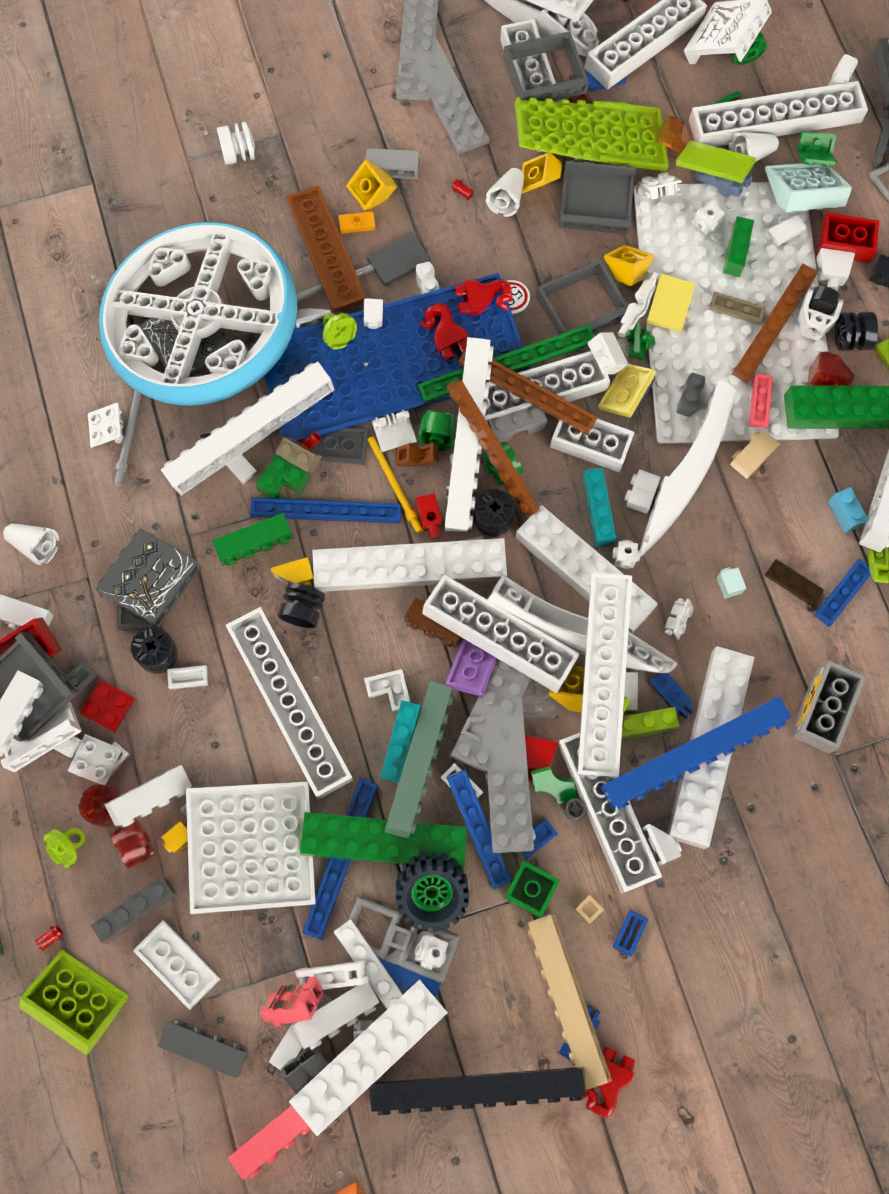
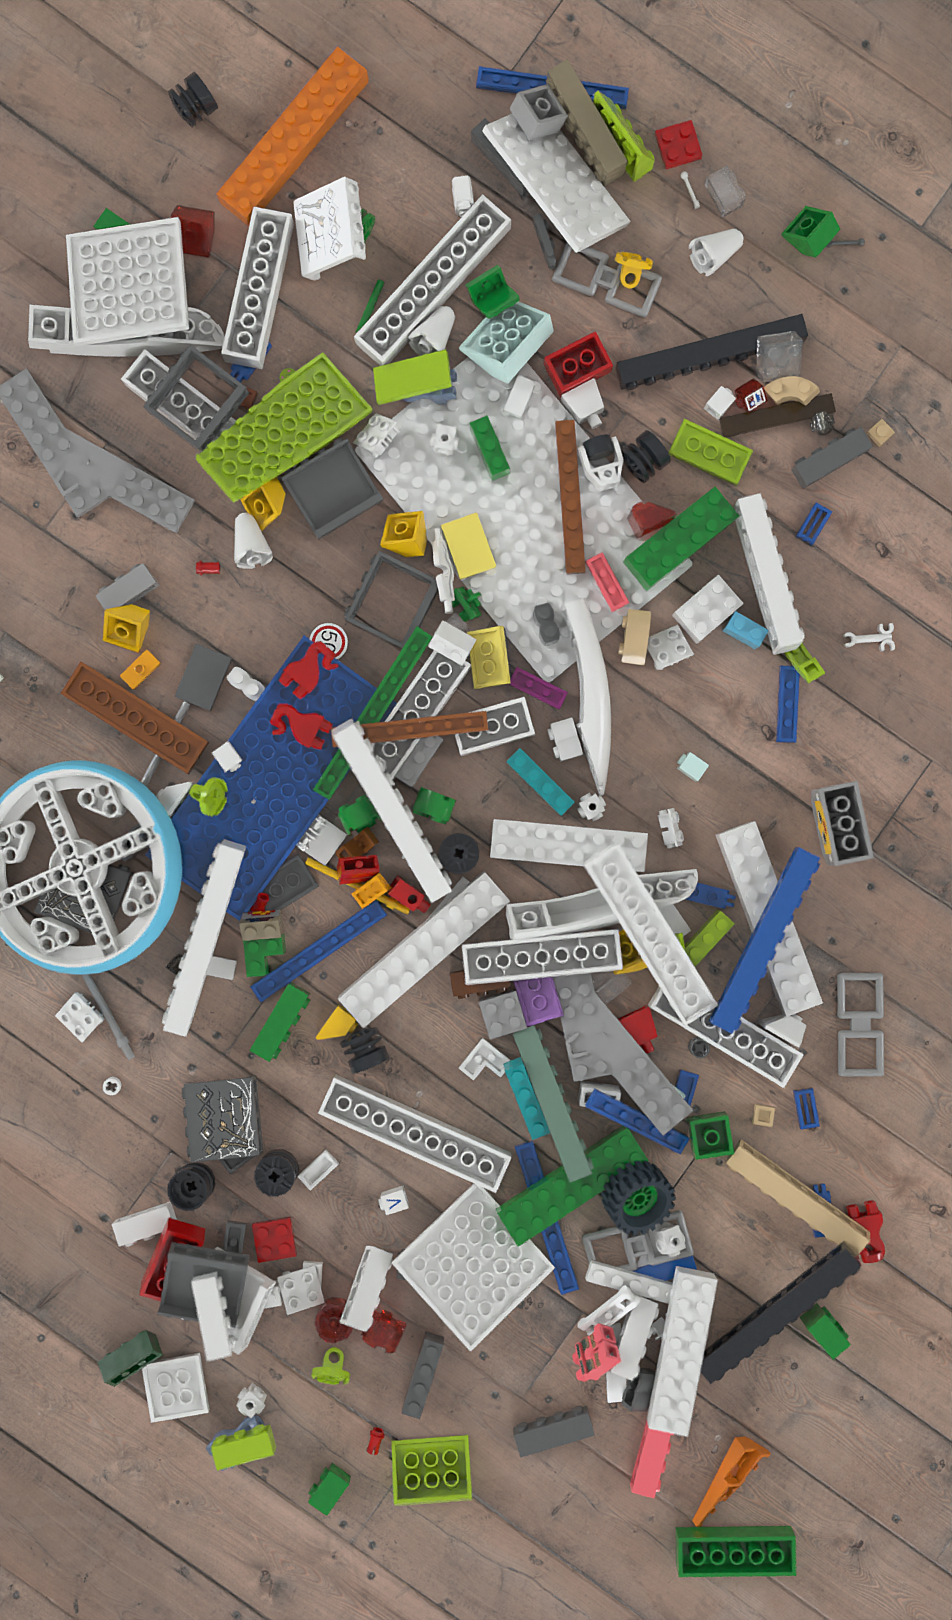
camera: 30 degrees left, 15 degrees up
(32, 541) = (104, 1160): white cone -> none
(76, 601) = (183, 1193): none -> black wheel
(83, 488) = (110, 1091): none -> white bush
(176, 838) = (411, 1300): yellow brick -> none
(177, 964) = (485, 1386): white tile -> none
(228, 745) = (394, 1200): none -> white brick
(402, 491) = (371, 890): none -> light orange plate
(405, 468) = (357, 869): none -> red brick
(432, 660) = (502, 1014): none -> light grey brick
(490, 443) = (418, 810): dark orange plate -> none
(508, 1143) = (826, 1330): none -> green brick
(560, 788) = (674, 1040): tile -> none
(648, 439) = (538, 688): none -> magenta plate
(673, 134) = (355, 373): clear orange slope -> none
(728, 895) = (860, 1025): none -> light grey bar
(737, 308) = (528, 507): dark tan tile -> none
(775, 481) = (668, 647): none -> white hinge
(794, 582) = (742, 726): dark brown plate -> none
(827, 473) = (707, 609): none -> white brick

